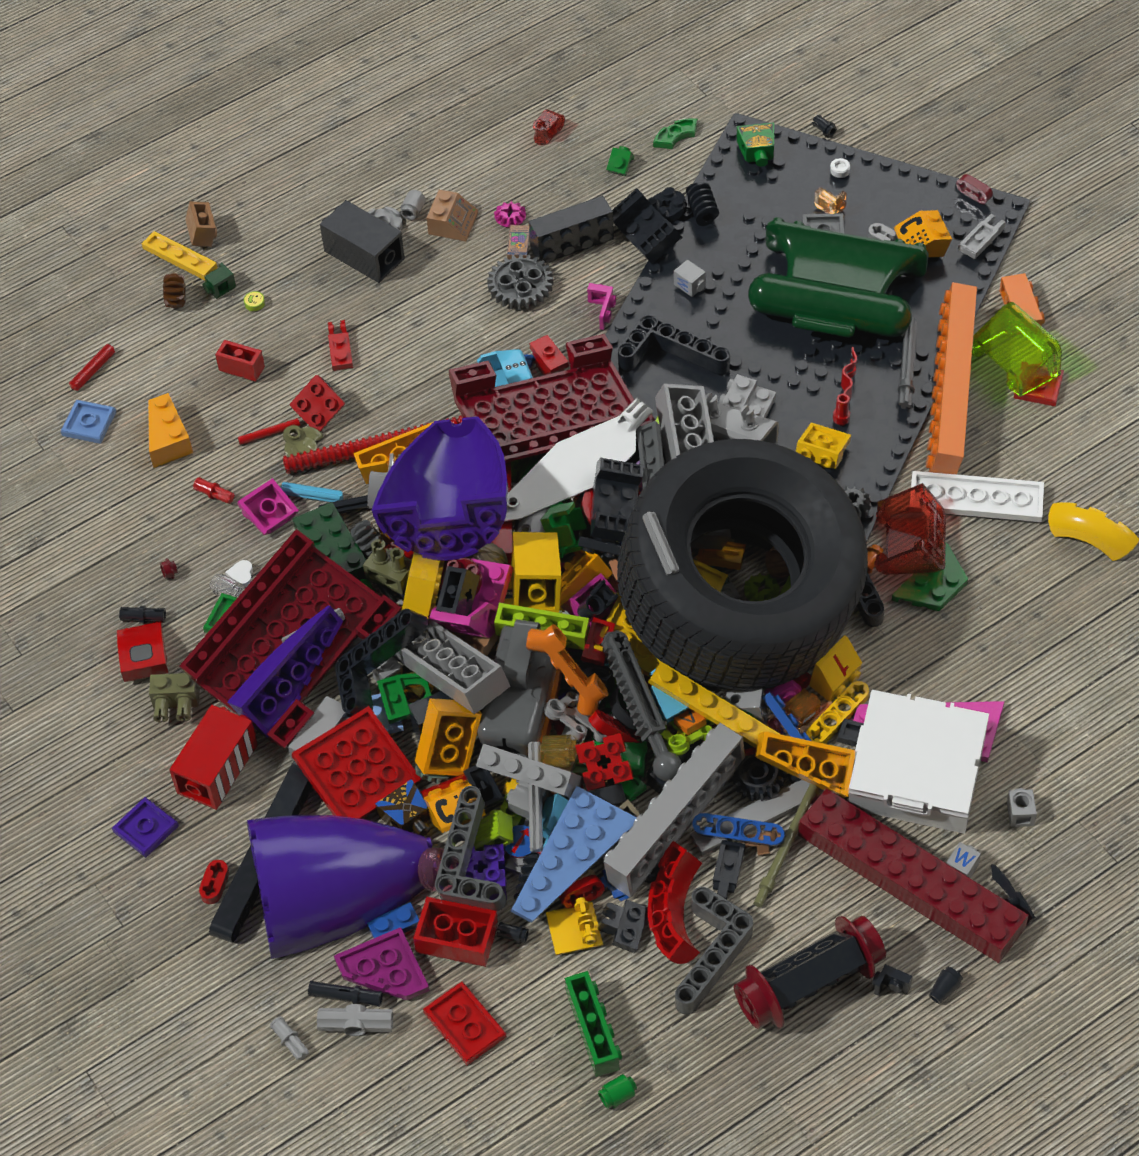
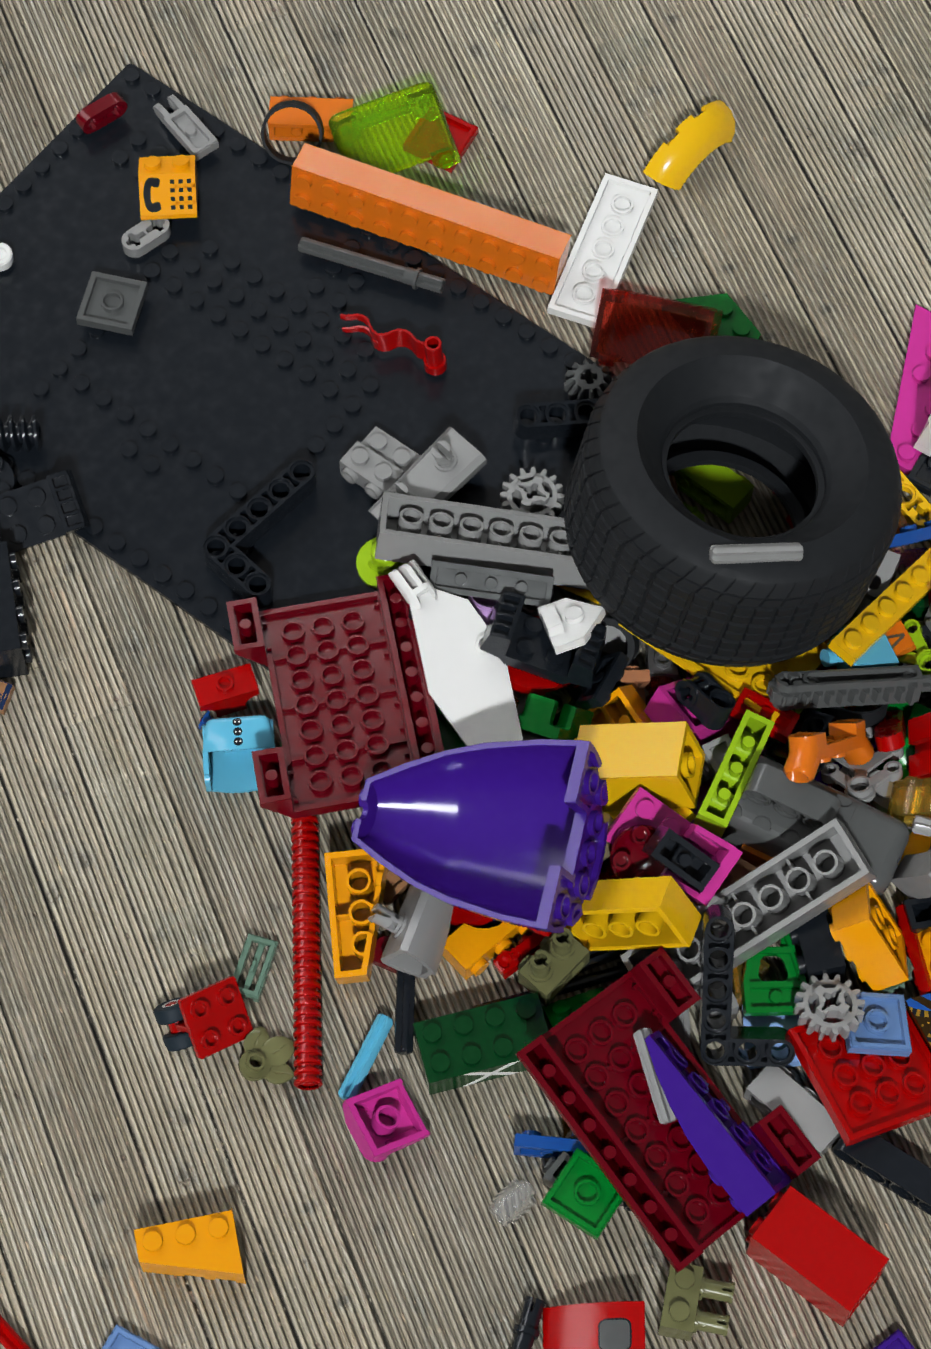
camera: 80 degrees left, 10 degrees up
(168, 569) = (454, 1282): dark red plate -> none
(213, 490) = (324, 1196): red axle -> none
(240, 360) = (92, 1116): red brick -> none
(241, 572) = (486, 1180): white tile -> none
(267, 431) = (231, 1102): red bar -> none
(339, 347) = (99, 974): red hinge -> none
(361, 425) = (262, 943): none -> sand green tile
(364, 534) = (488, 986): dark grey gear -> none
(388, 725) = (834, 1018): none -> light grey gear
(388, 762) = (882, 1028): none -> medium blue tile
(520, 281) = (63, 702): dark grey gear -> none
(604, 296) = (130, 594): dark pink bracket -> none
(622, 501) = (569, 623): none -> white plate
(689, 278) = (142, 481): light grey brick -> none
(823, 445) = (485, 393): yellow plate -> none
(828, 202) = (64, 283): clear orange bracket -> none
(837, 281) = (221, 307): dark green piece -> none
(987, 283) = (285, 104): none -> black tyre

